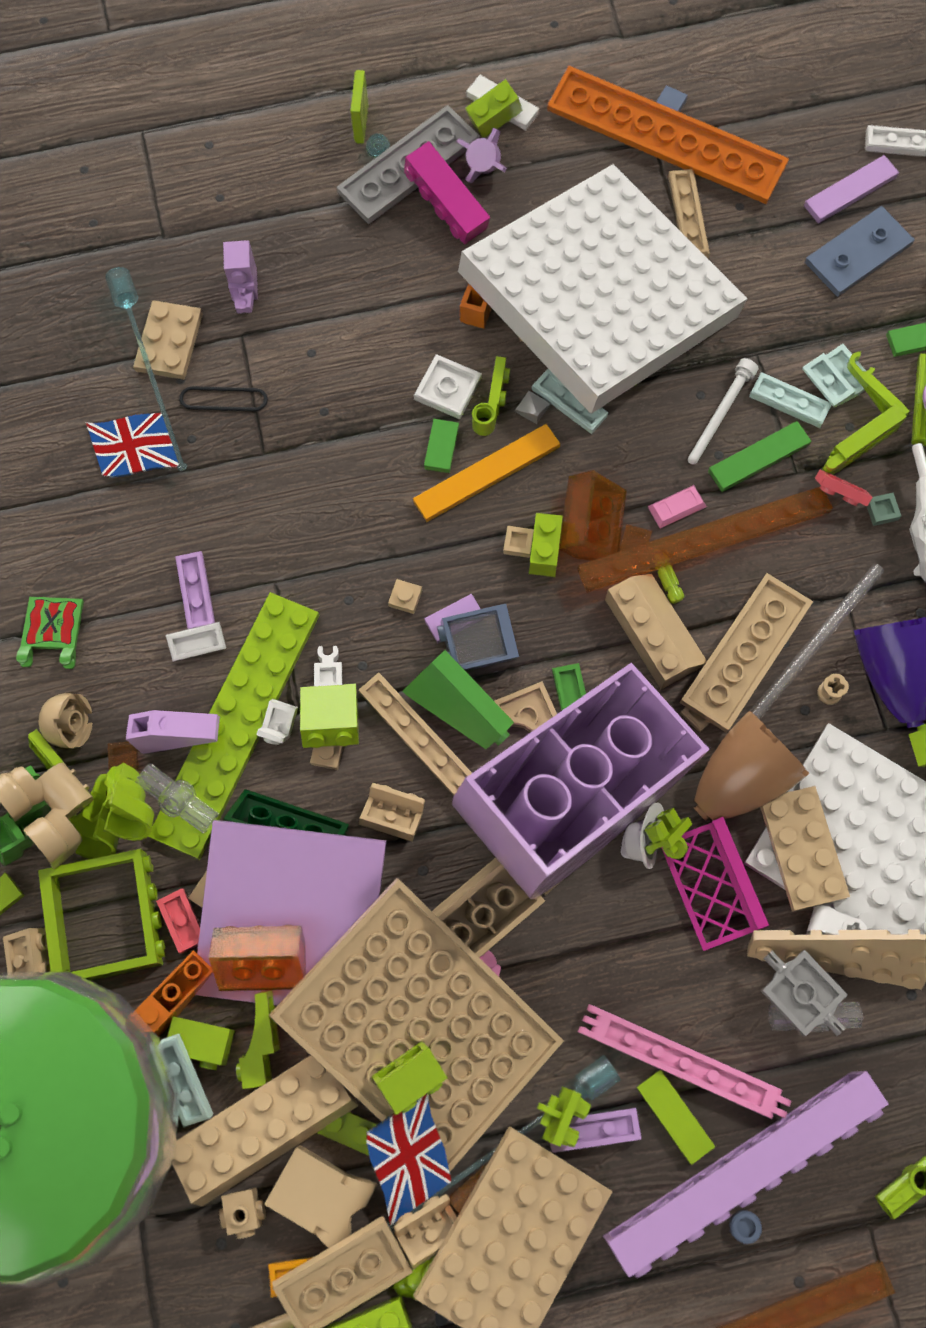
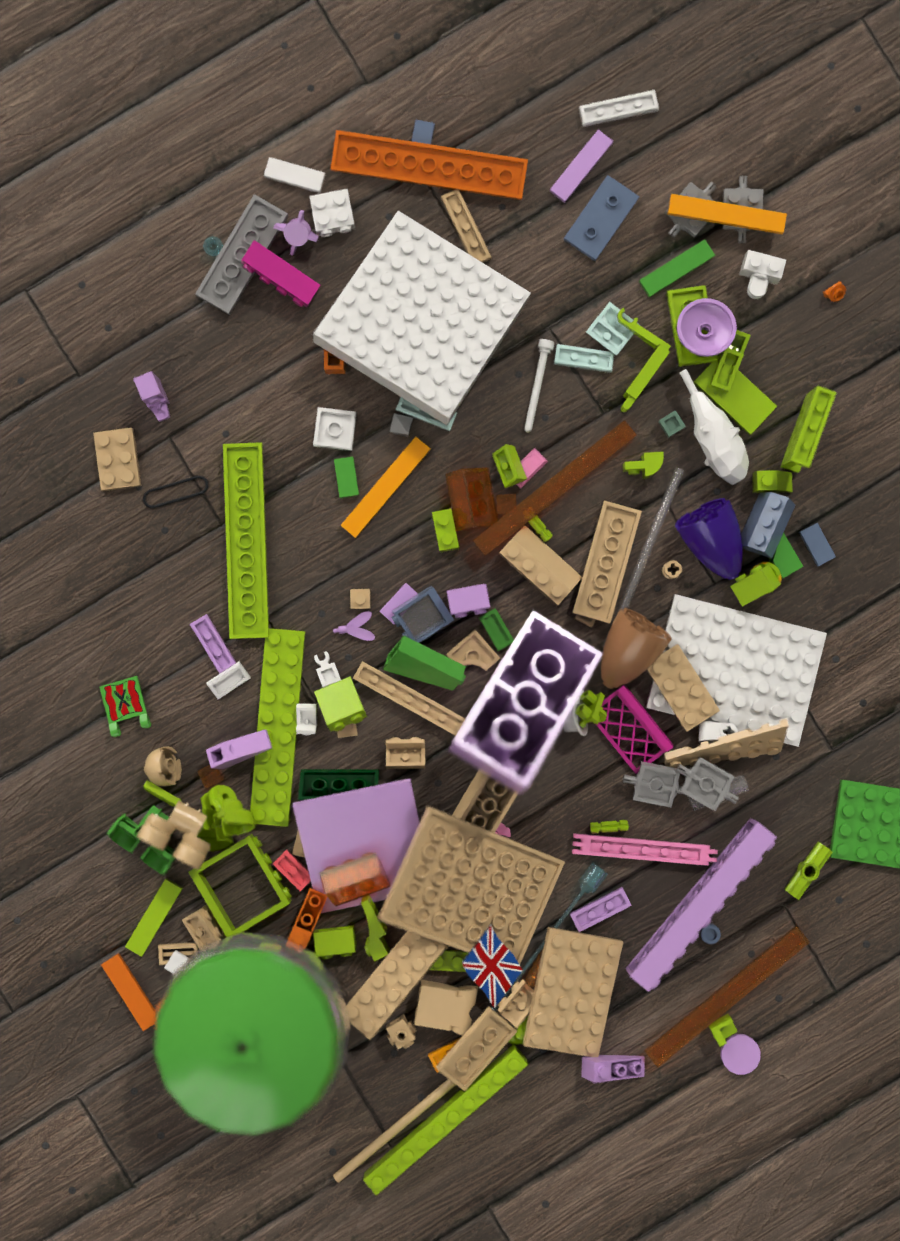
camera: 20 degrees left, 15 degrees up
(139, 440) = (127, 547): flag -> none
(177, 798) = (261, 795): clear piece -> none
(192, 1100) = (345, 977): light aqua tile -> none
(285, 482) = (246, 540): none -> lime plate
(359, 106) = (188, 221): lime tile -> none
(384, 630) = (353, 627): none -> lavender piece
(410, 1078) = (477, 923): lime brick -> none
(494, 108) = (291, 189): lime brick -> none
(496, 399) = (373, 426): lime plate -> none
(518, 541) = (425, 533): tan plate -> none
(532, 152) = (332, 212): none -> white plate
(546, 637) = (467, 600): none -> lavender brick
(559, 1115) = (576, 910): lime hips -> none
(642, 1012) = (609, 826): none -> lime axle
(654, 493) = (509, 465): none -> lime slope
(675, 1117) = (648, 883): lime tile -> none
(727, 972) = (655, 784): none -> light grey plate
(759, 456) = (574, 410): bright green tile -> none
(838, 548) = (649, 465): none -> lime brick
(851, 492) = (640, 419): coral plate -> none

